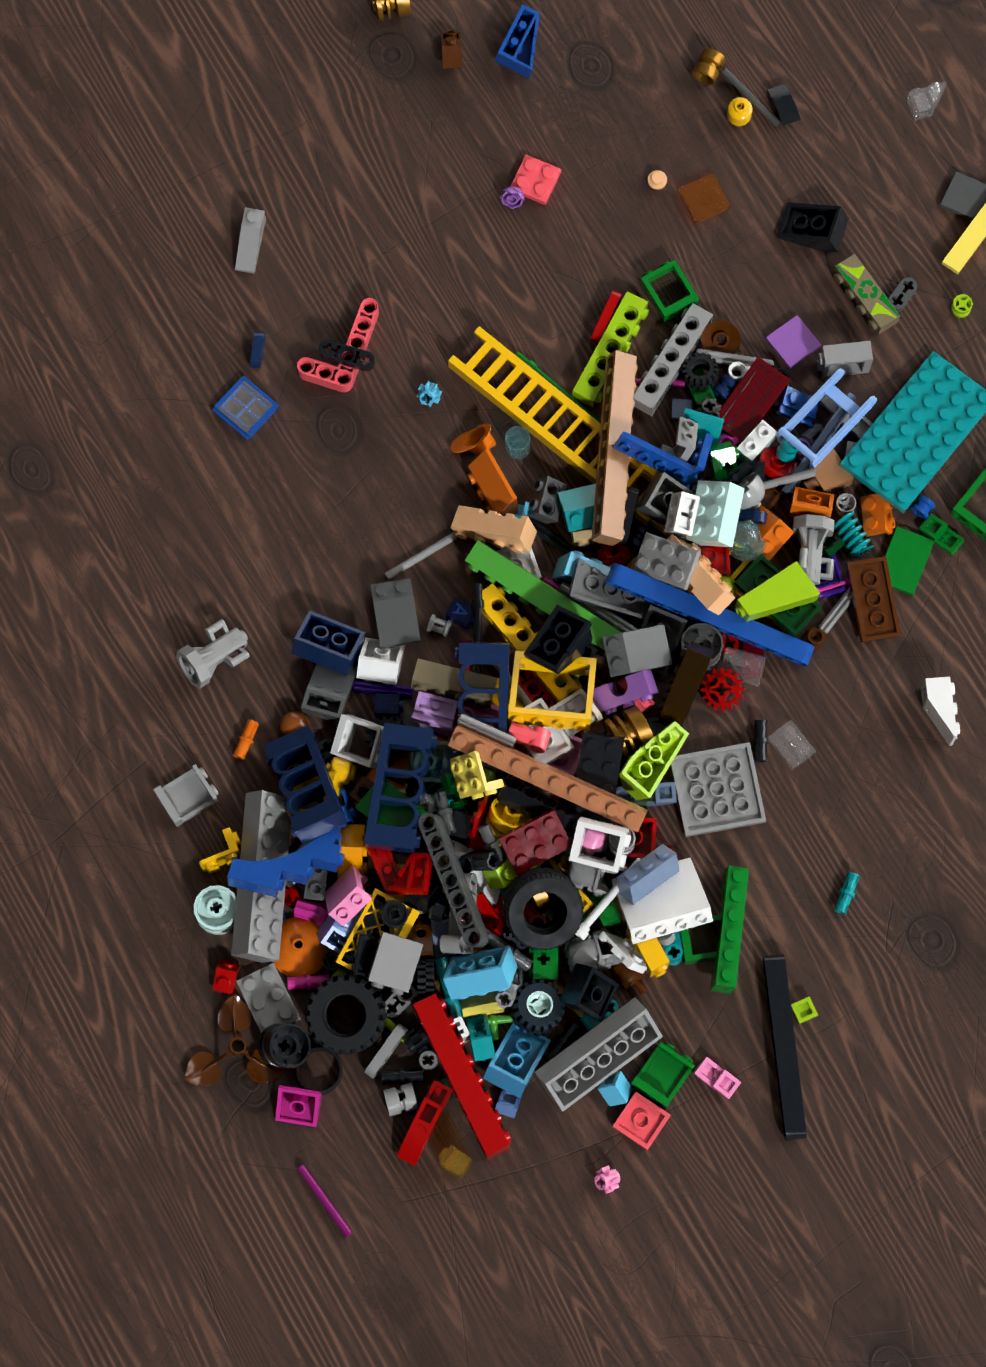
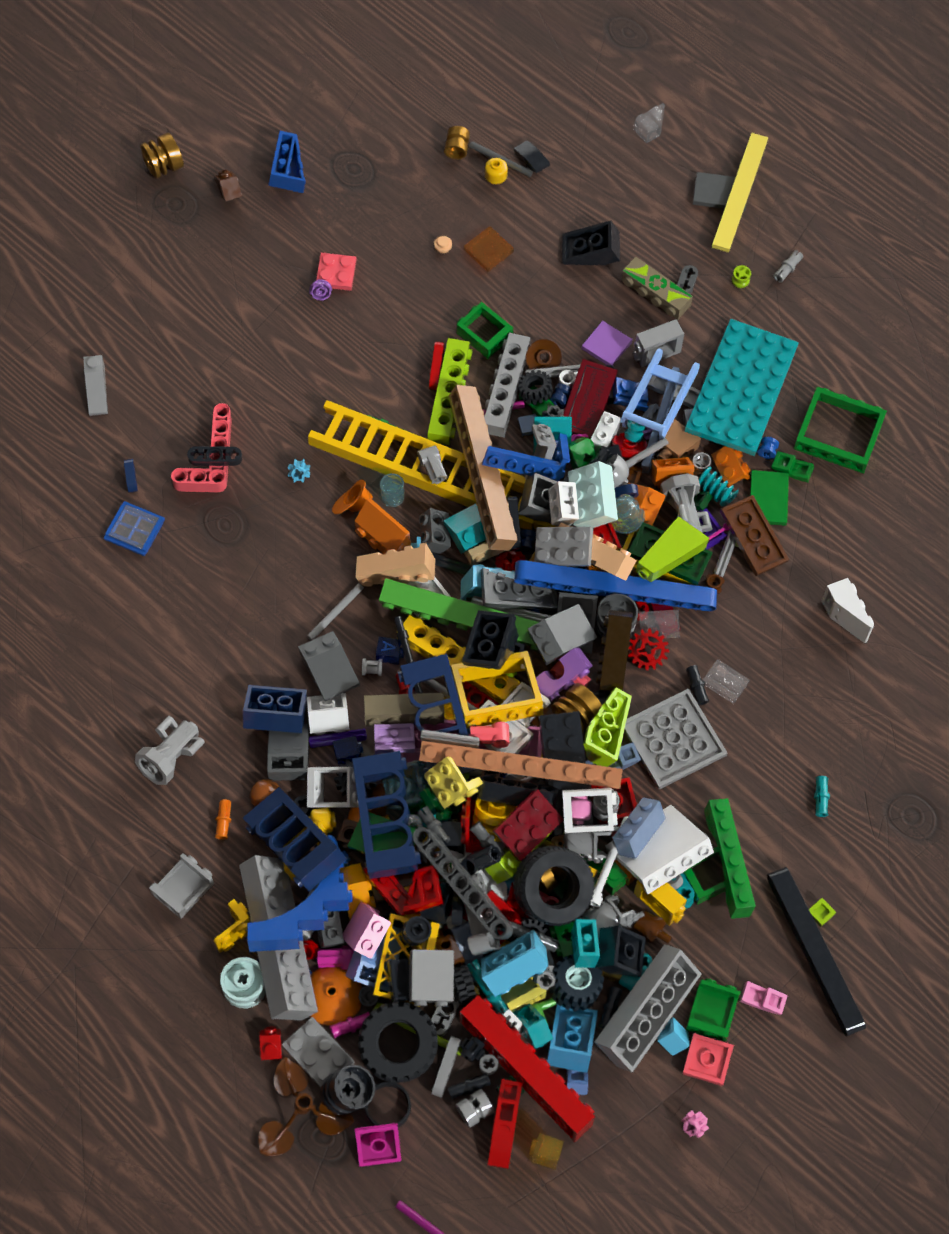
camera: 20 degrees left, 10 degrees down
(556, 974) = (585, 943): none -> teal brick
(564, 424) = (431, 461): none -> light grey piece
(625, 952) = (639, 904): white wing -> none

